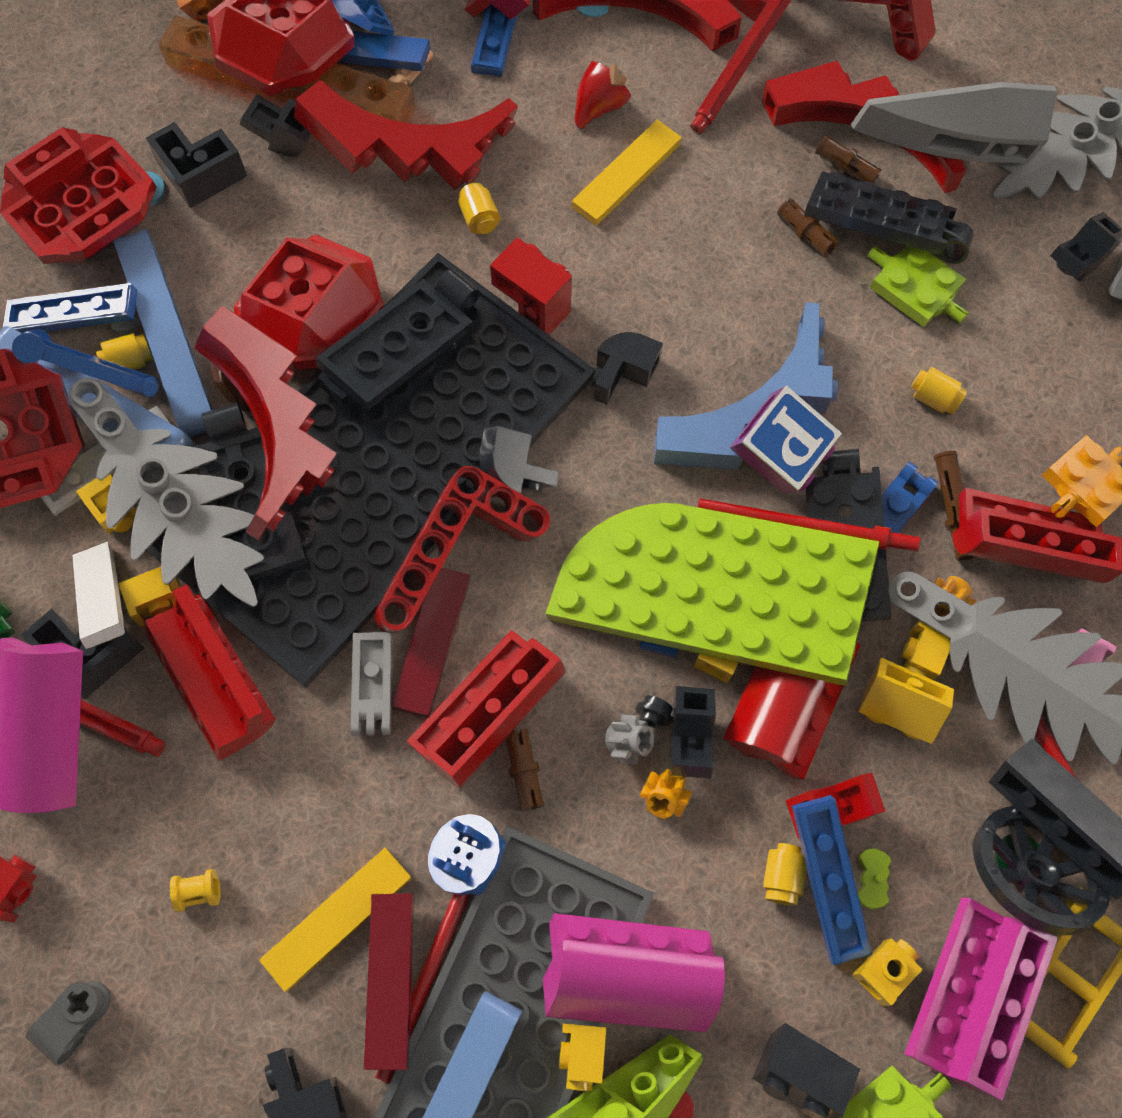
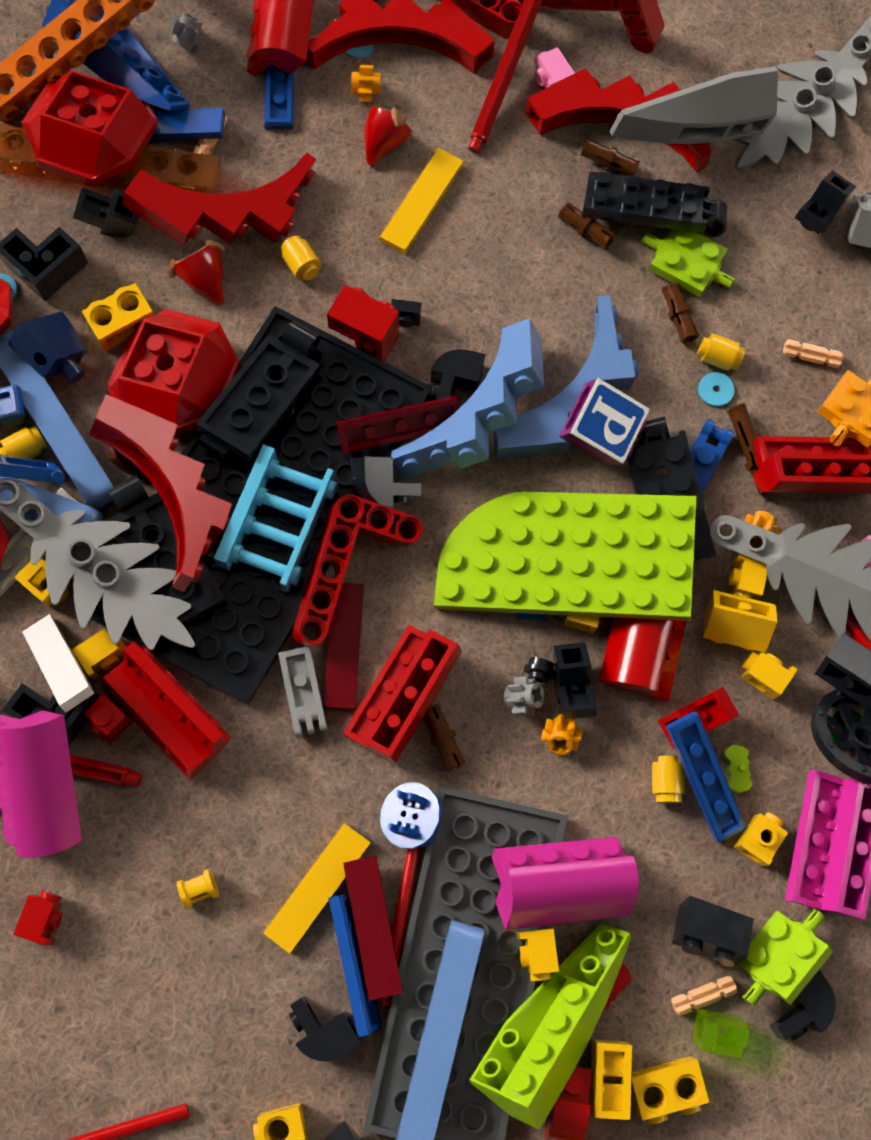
camera: 15 degrees left, 5 degrees up
(65, 1023) = (118, 1015): dark grey piece -> none
(140, 670) = (107, 719): none -> red brick
(180, 251) = (50, 346): none -> dark blue torso
(264, 234) = (114, 309): none -> yellow brick
(356, 1083) = (364, 1011): none -> blue tile
(366, 202) = (202, 271): none -> red hat
(367, 449) = (255, 495): none -> medium azure fence
(548, 402) = (394, 424): none -> dark red tile
(585, 285) = (408, 312): none -> black plate
(590, 40) = (366, 83): none -> light orange gear
(656, 401) = (492, 406): none -> medium blue arch
(799, 55) = (551, 68): none -> bright pink brick
(882, 534) = (695, 489): red bar -> none
(898, 339) = (680, 312): none -> reddish brown pin
(929, 770) = (767, 674): none -> yellow brick
(930, 422) = (713, 398): none -> medium azure wheel
(1047, 411) = (813, 353): none -> light nougat axle

